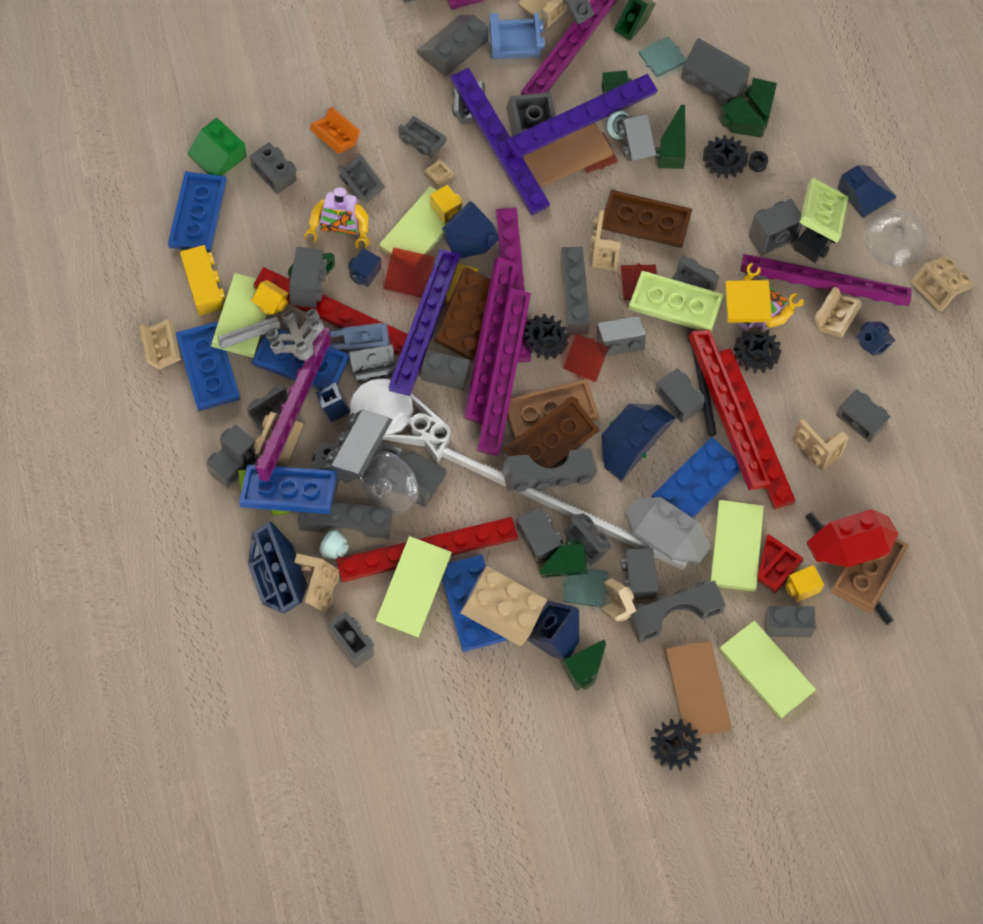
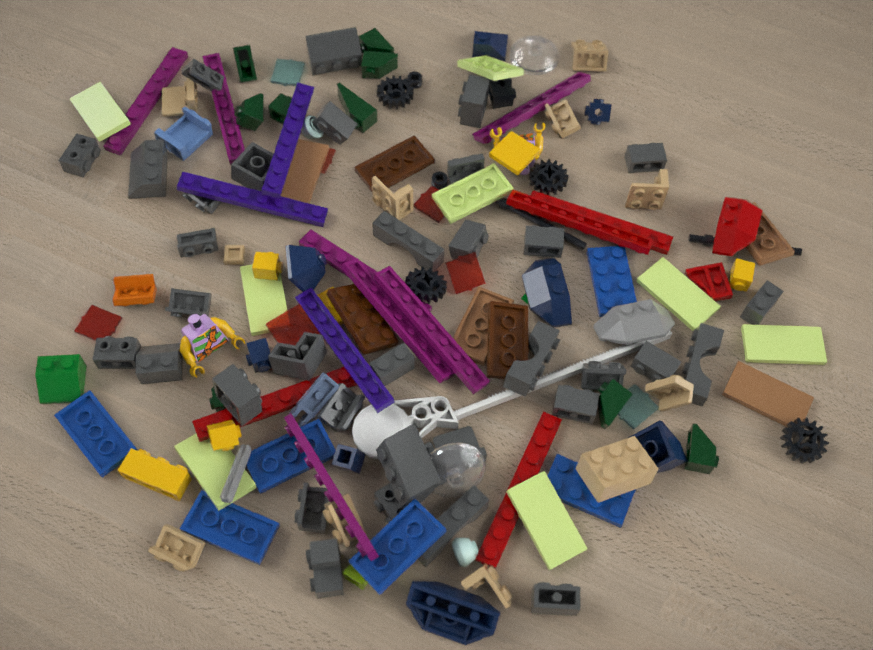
camera: 50 degrees left, 5 degrees down
(287, 132) = (98, 323): none -> clear red piece
(291, 203) = (159, 363): none -> dark grey slope
(303, 348) = (292, 443): light grey plant -> none
(387, 299) = (298, 360): none -> dark grey brick
(584, 65) = (251, 112): none -> dark green slope
(671, 263) = (437, 176): none -> black bush

